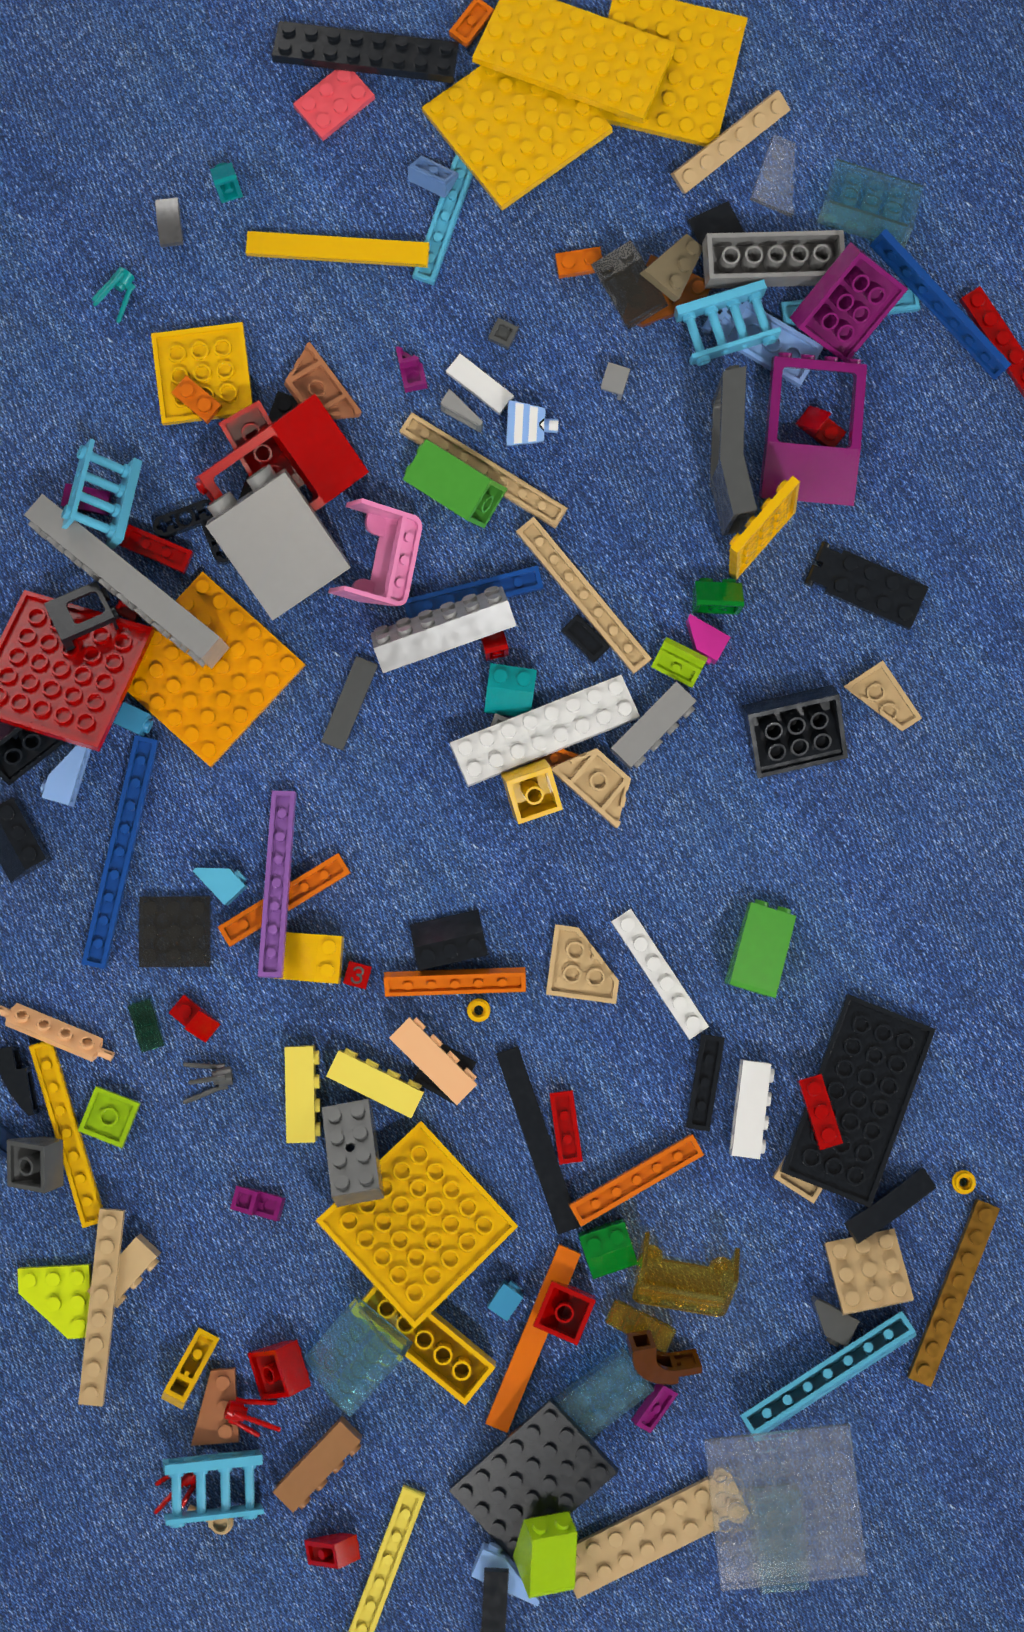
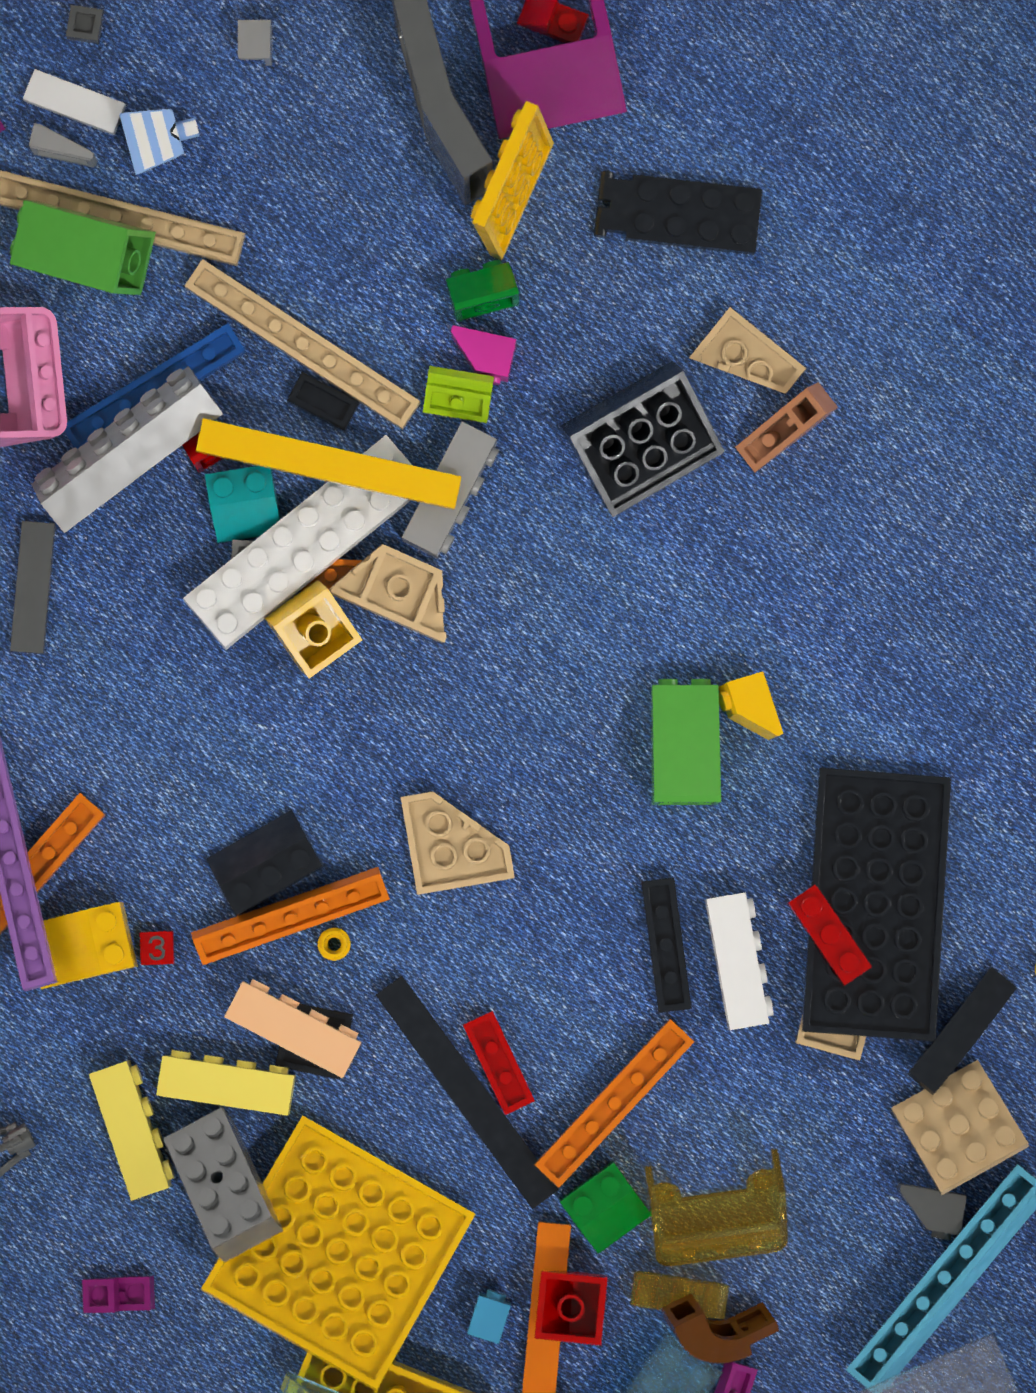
camera: 15 degrees left, 0 degrees up
(577, 682) = (328, 464): none -> yellow tile
(660, 974) = (561, 819): white plate -> none
(814, 937) = (751, 705): none -> yellow slope
(895, 754) = (786, 426): none -> nougat slope

